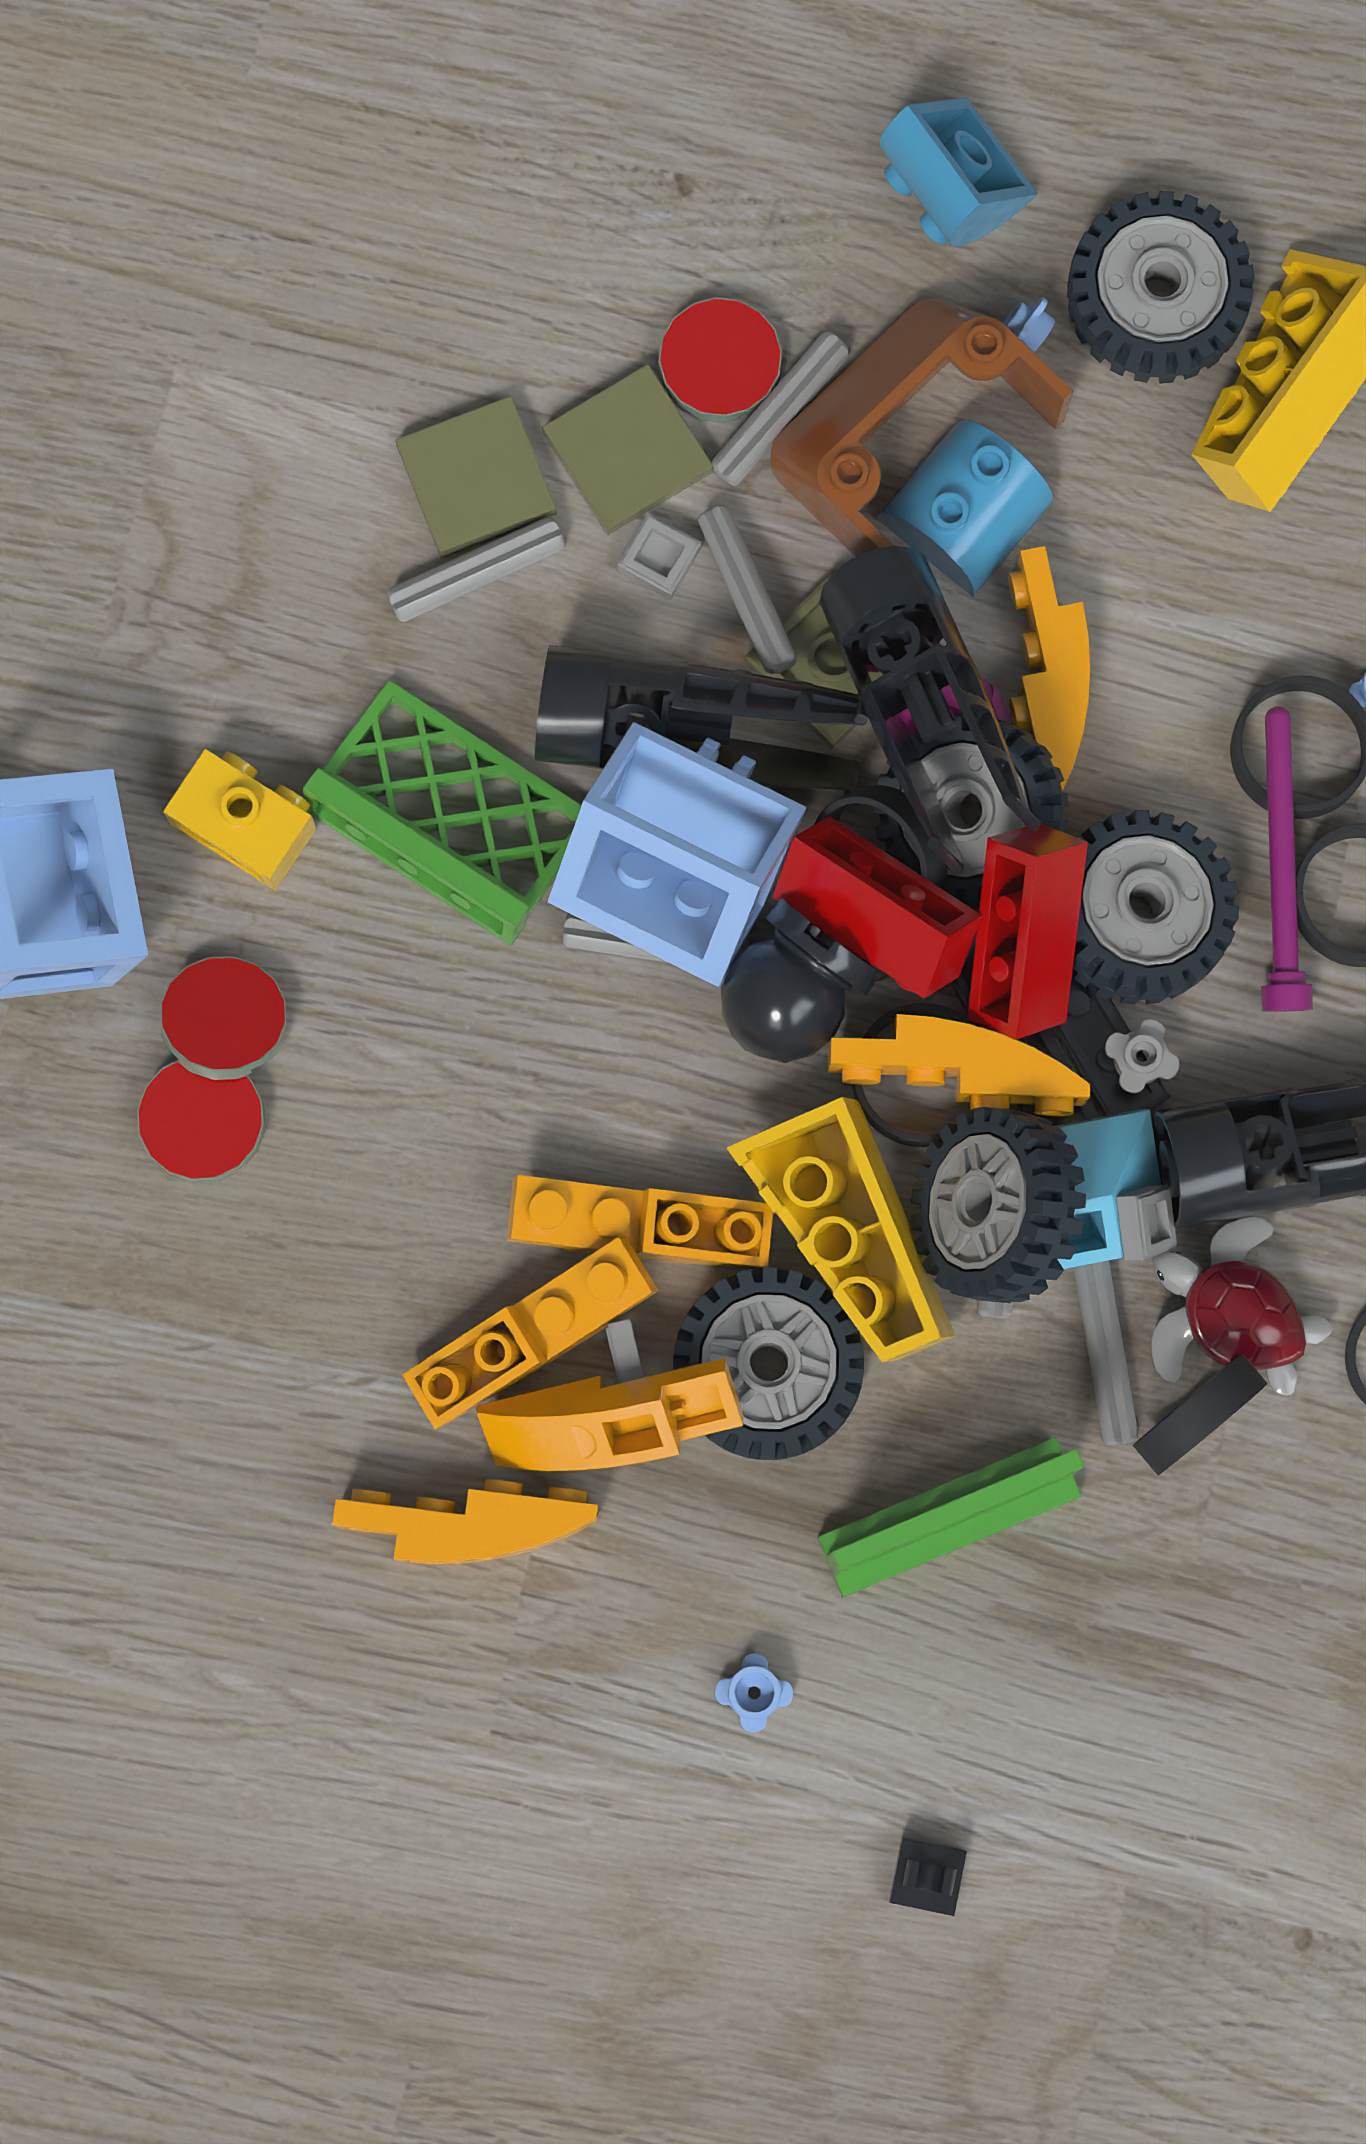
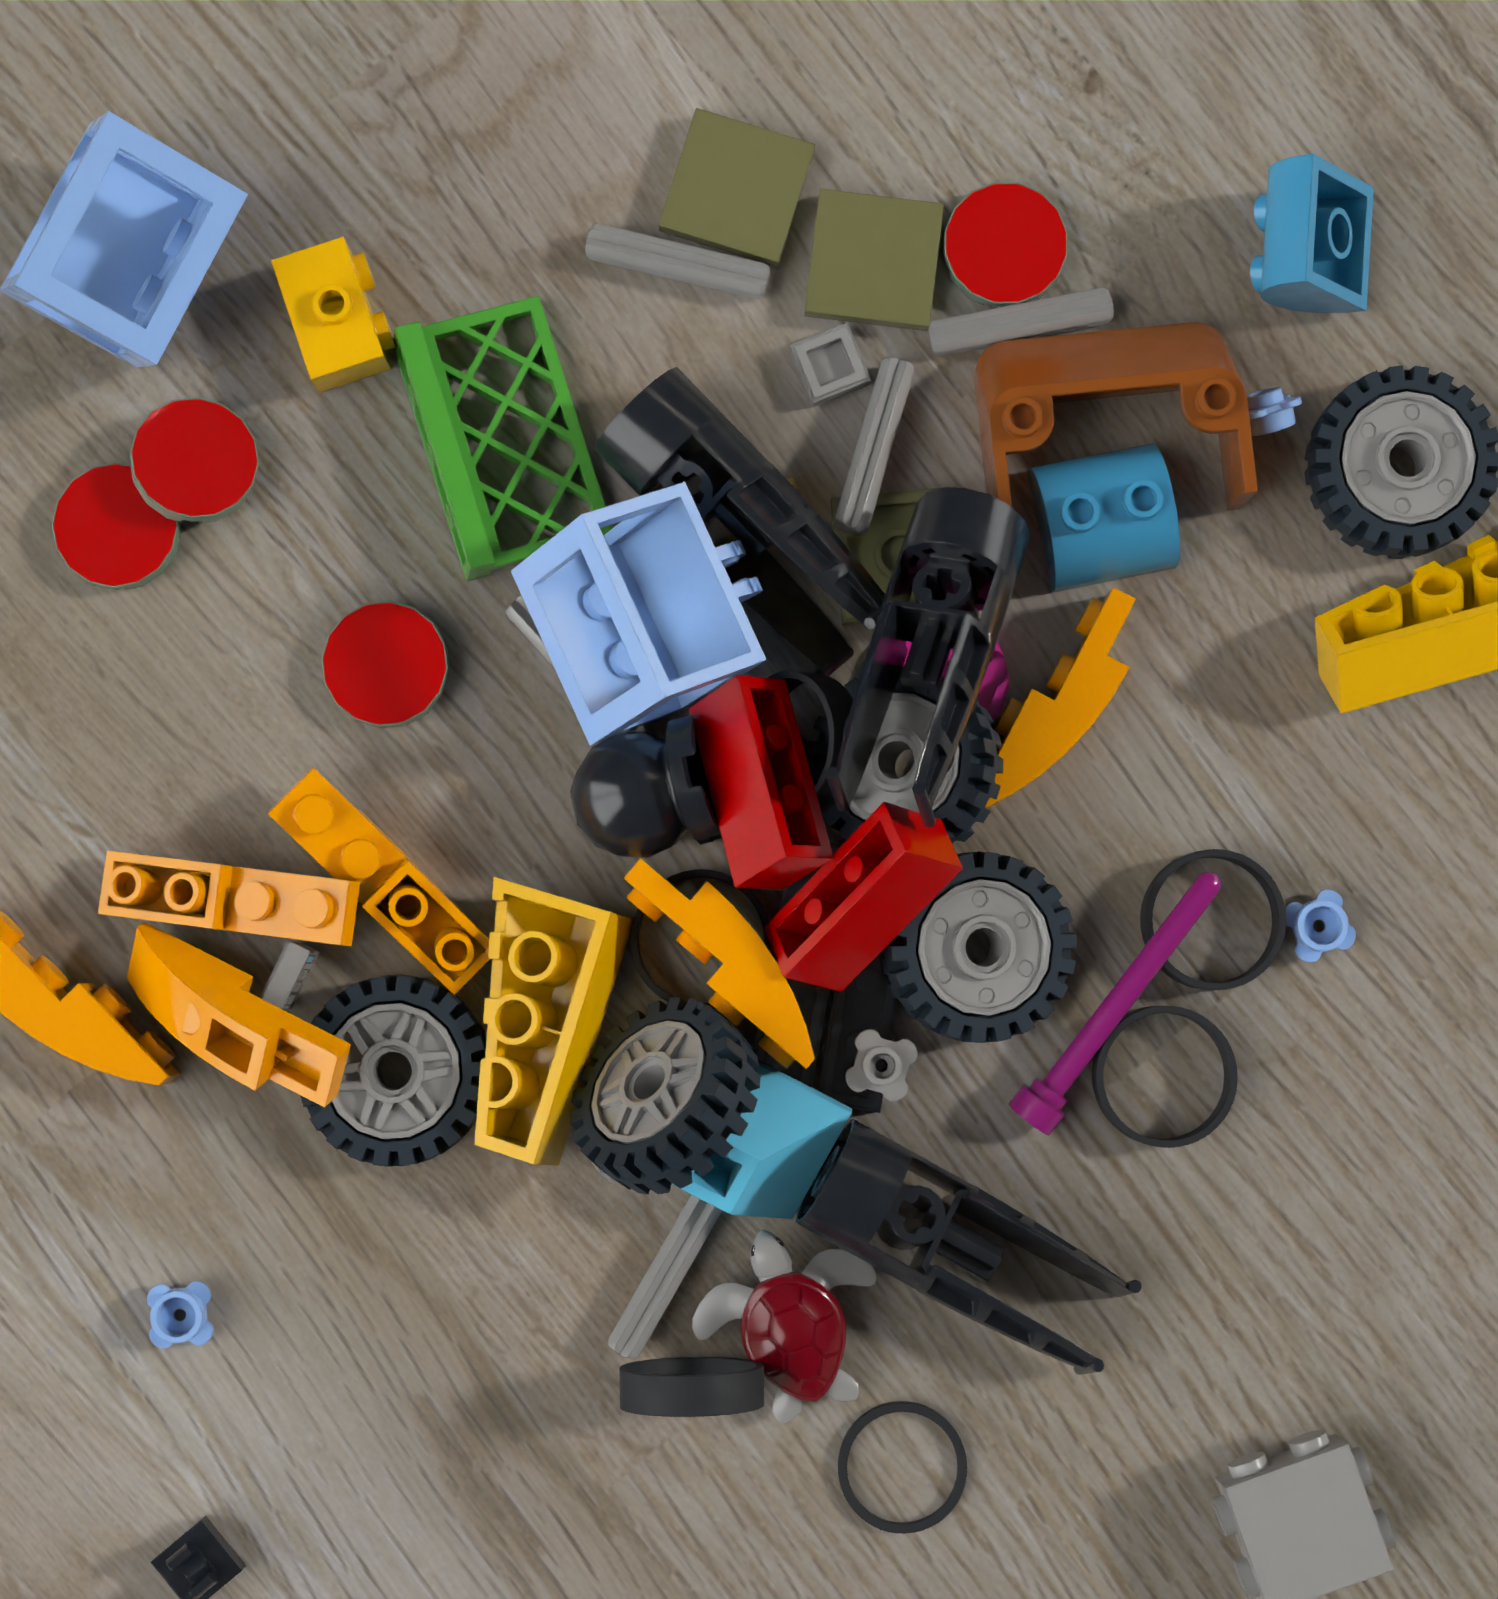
camera: 35 degrees right, 5 degrees up
(501, 1058) = (385, 664): none -> red tile
(951, 1516) = (437, 1300): bright green fence -> none
(1146, 1222) = (774, 1201): light grey tile -> none

